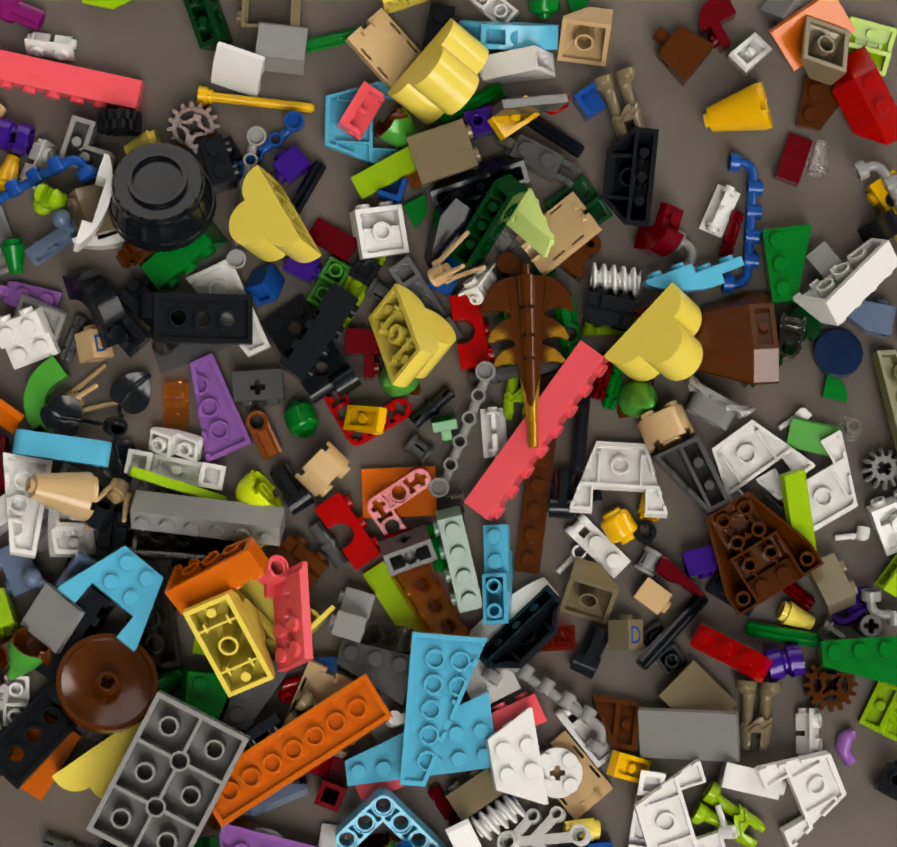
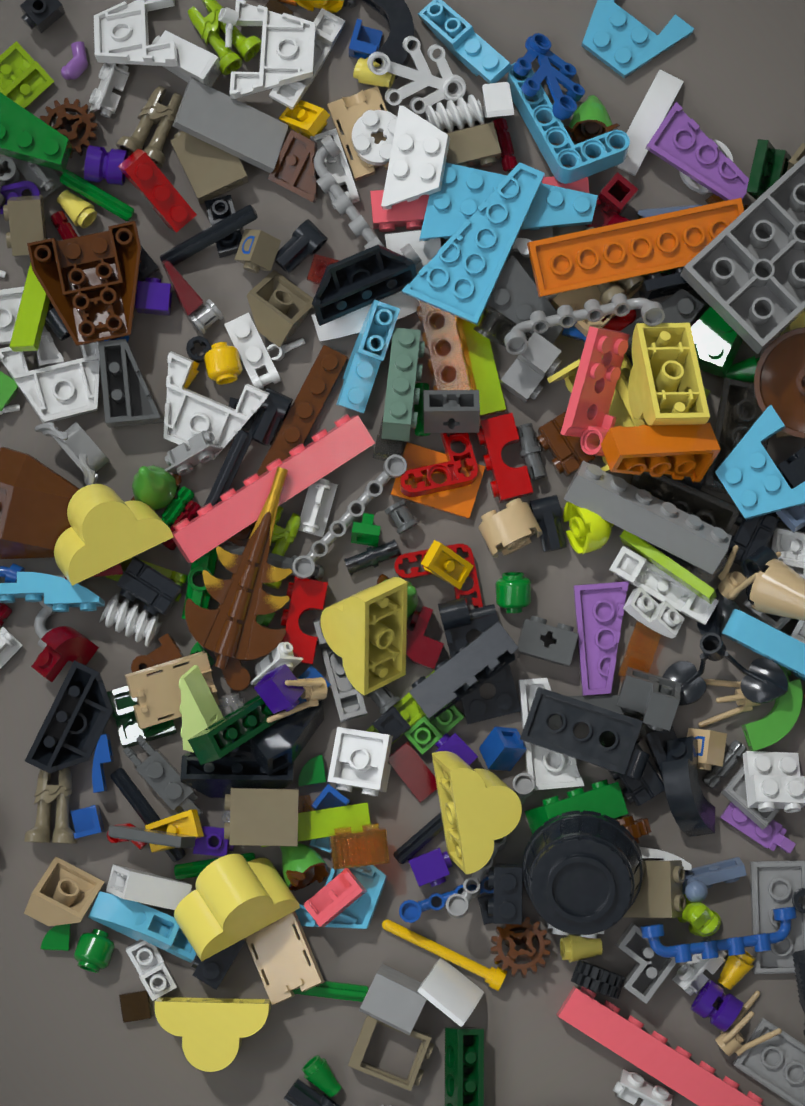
camera: 170 degrees left, 0 degrees up
(14, 255) = (758, 875): green cone -> none
(87, 229) = (634, 917): white slope -> none
(153, 369) = (650, 695): none -> dark grey brick
(264, 437) = (558, 587): dark orange piece -> none
(315, 677) = (516, 340): none -> light grey bar
(355, 157) = (358, 847): none -> clear orange brick
(471, 256) = (276, 693): none -> dark purple brick
(595, 160) = (102, 755): none -> blue slope
(609, 442) = (202, 450): none -> light grey hinge
(653, 597) = (215, 279): tan brick -> none
(665, 427) = (137, 444): tan brick -> none

